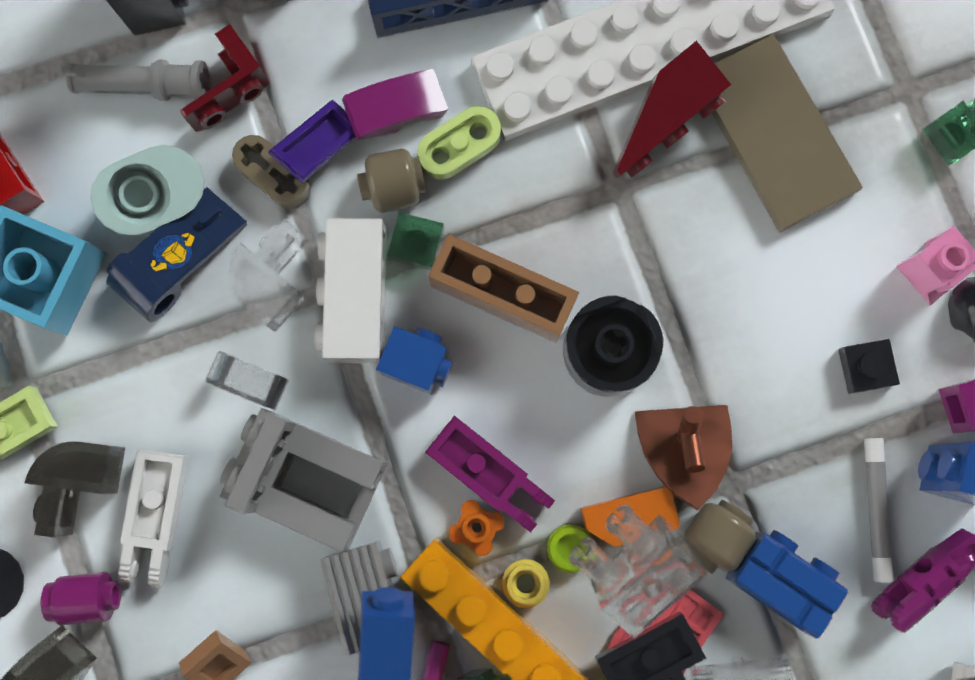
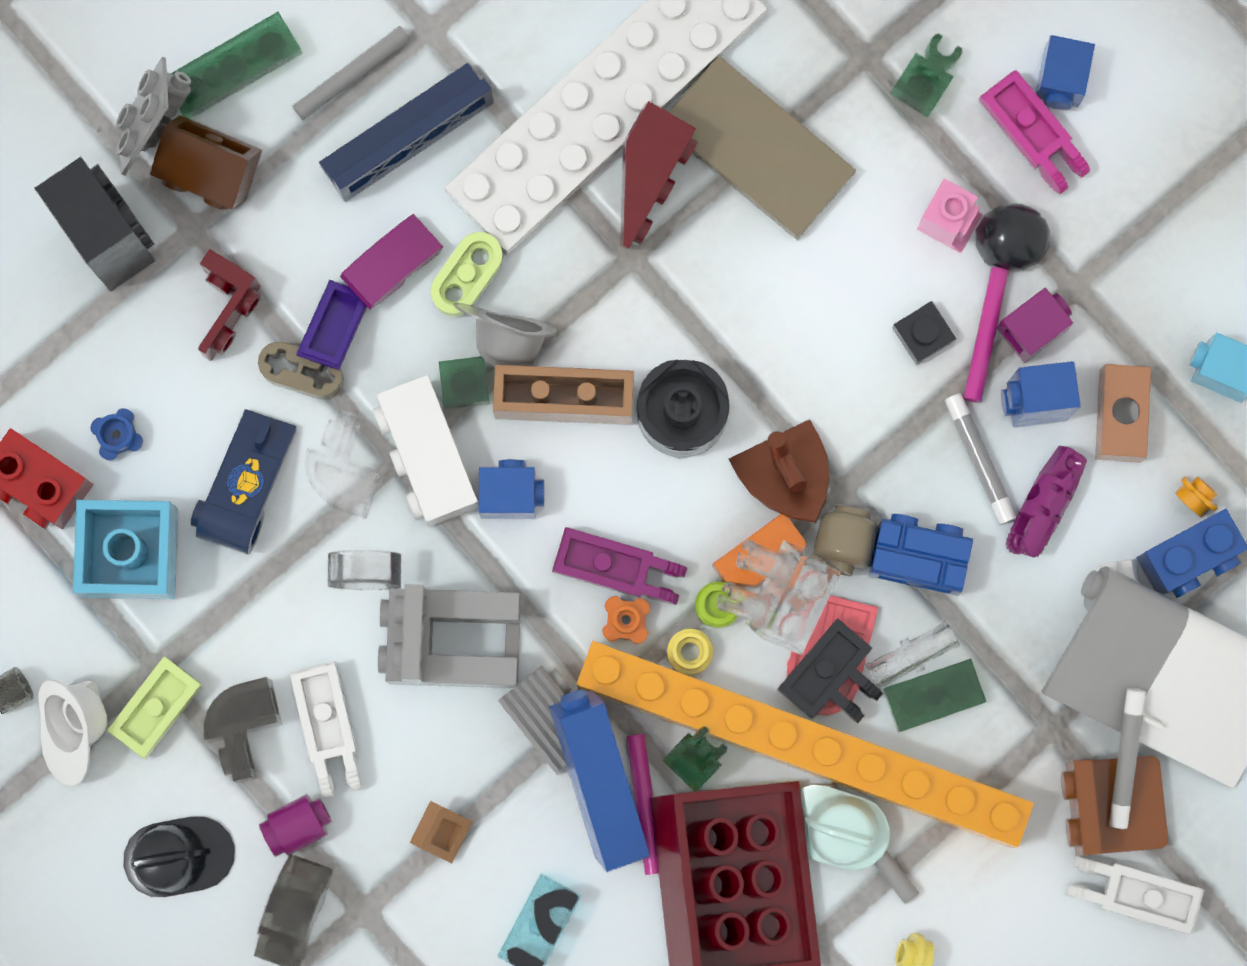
camera: 25 degrees left, 0 degrees up
(68, 157) = (104, 429): none -> blue plate
(147, 189) = (200, 433): light aqua piece -> none
(159, 79) = (159, 326): light grey pin -> none
(392, 180) = (419, 334): dark tan head -> none
(471, 214) = (507, 337): none -> light grey piece
(928, 392) = (986, 335): none -> dark pink piece

